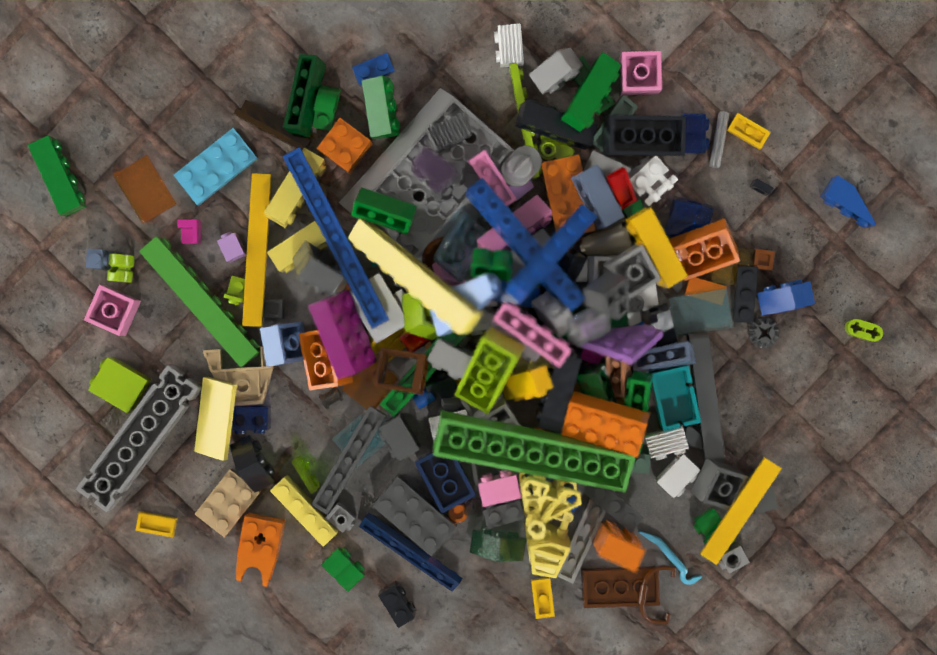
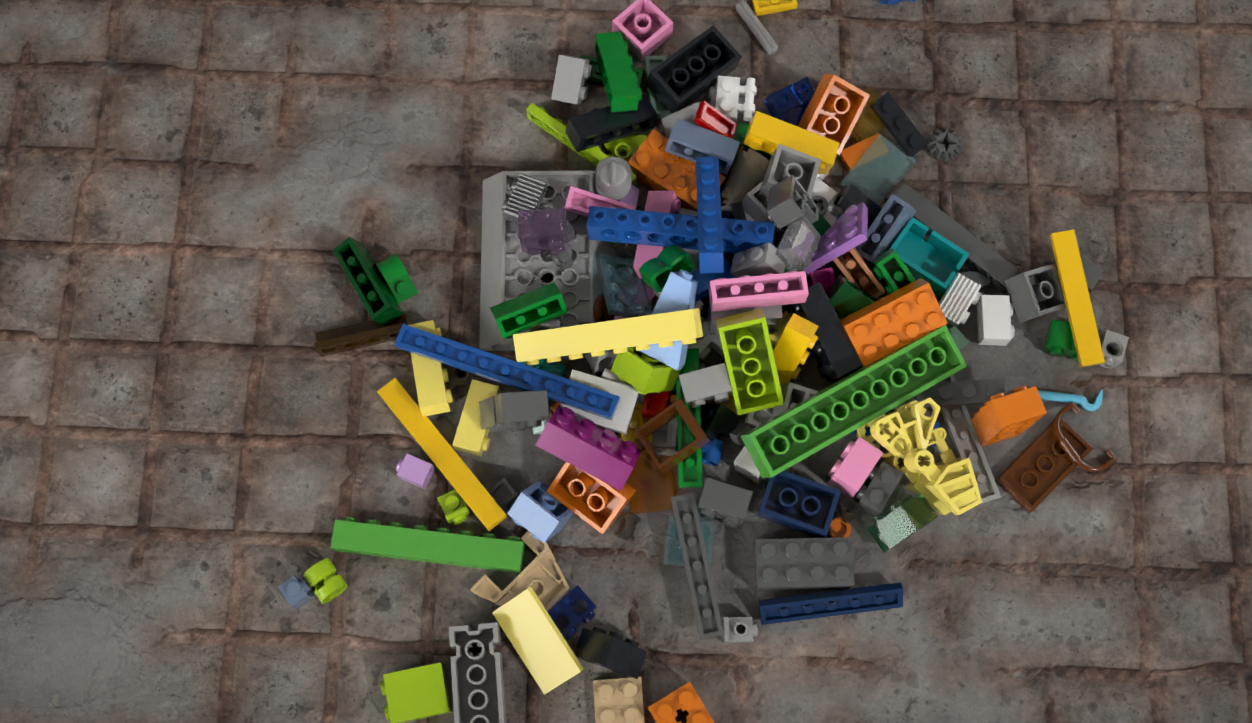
camera: 40 degrees left, 15 degrees down
(57, 176) = (191, 549): green brick -> none
(112, 310) = (350, 626): bright pink brick -> none
(144, 189) = (287, 493): clear orange piece -> none
(190, 231) = (363, 491): dark pink panel -> none
(215, 166) = (337, 415): medium azure plate -> none
(300, 507) = (699, 653): light yellow brick -> none
(302, 467) = (679, 620): clear neon green plate -> none
(343, 568) = (785, 675): green brick -> none
(345, 145) = (441, 295): orange brick -> none
(373, 68) = (409, 214): blue plate -> none
(380, 107) = (445, 236): brick -> none
(397, 604) = (865, 663): black brick -> none
(510, 45) = (510, 97): white brick -> none
(542, 597) = (987, 536): yellow plate -> none
(696, 133) = (741, 40): clear blue brick -> none
(761, 187) = (827, 33): black tile -> none
(764, 259) = (886, 84): dark orange plate -> none
(788, 297) = (936, 96): blue brick -> none
(865, 326) = (1023, 77): lime beam -> none

